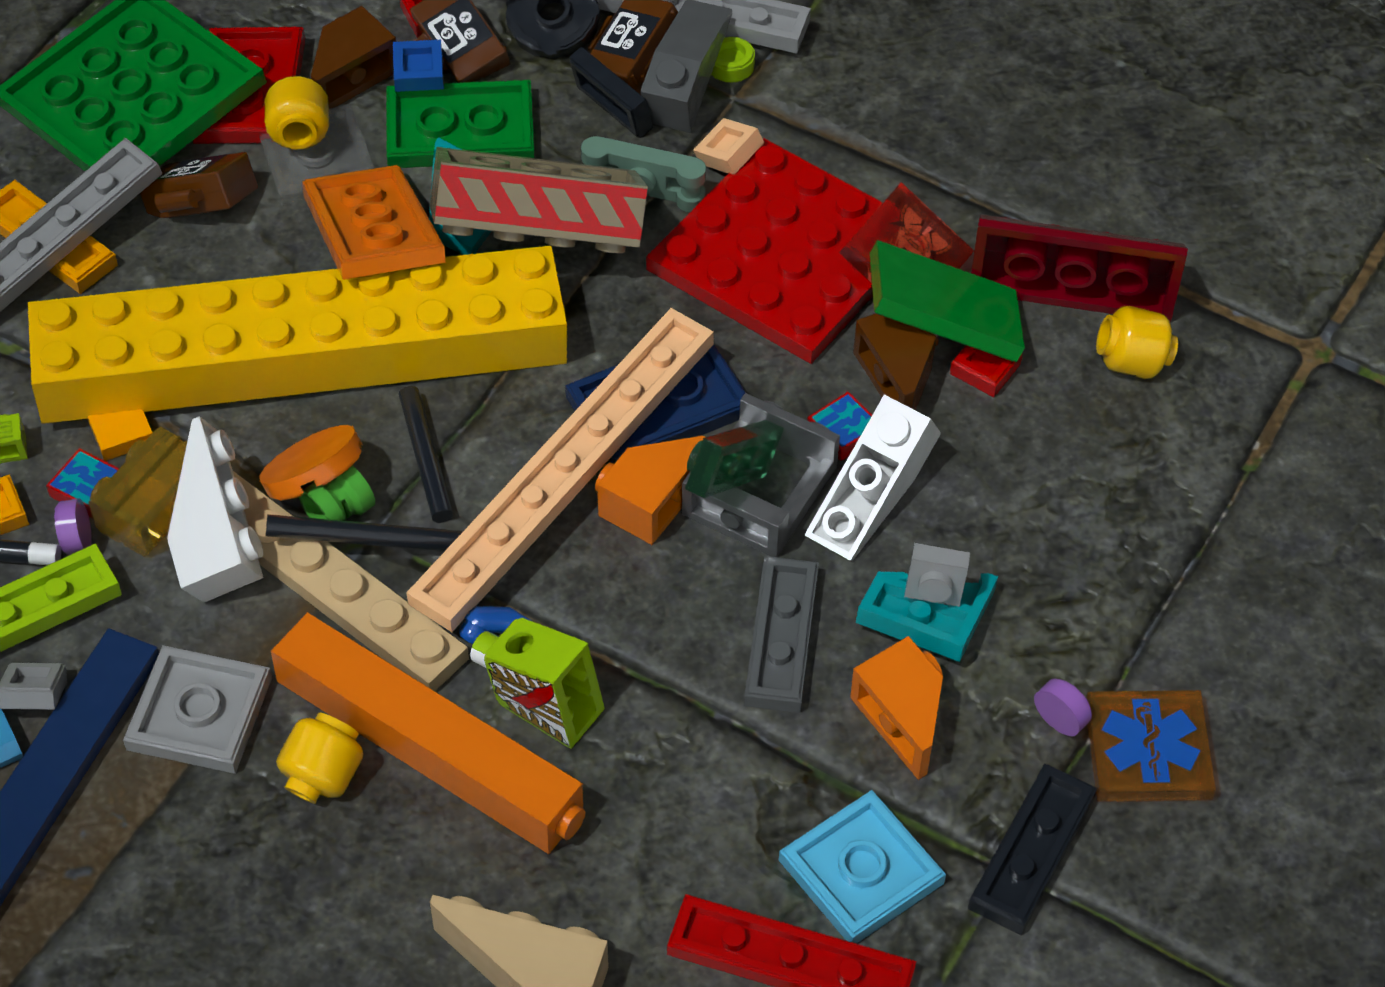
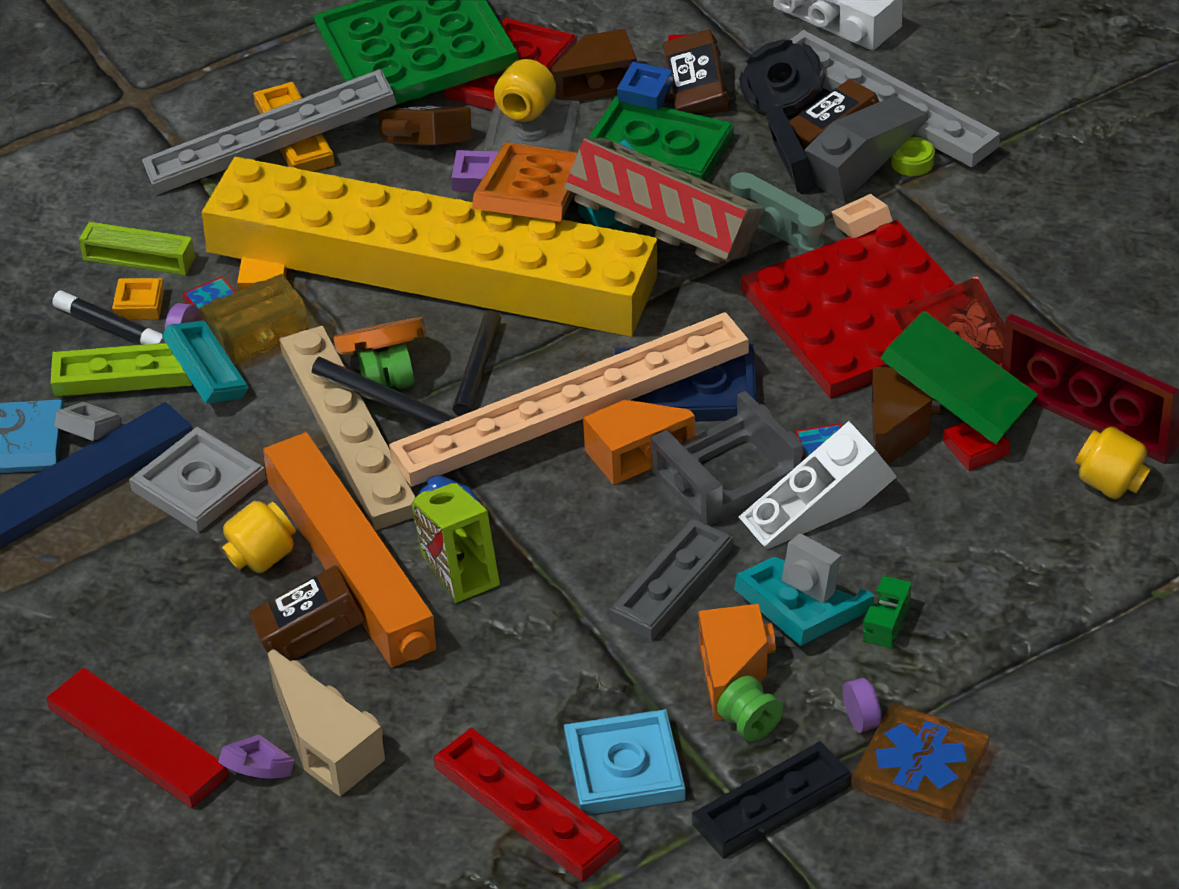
camera: 30 degrees right, 10 degrees down
(126, 563) = (205, 361): none -> teal tile
(208, 524) = (276, 350): white slope -> none
(285, 223) = (470, 169): none -> medium lavender tile
(428, 831) = (307, 615): none -> reddish brown piece
(732, 458) = (697, 428): clear green plate -> none
(958, 756) = (750, 708): none -> bright green wheel
(1019, 589) = (885, 620): none -> green piece

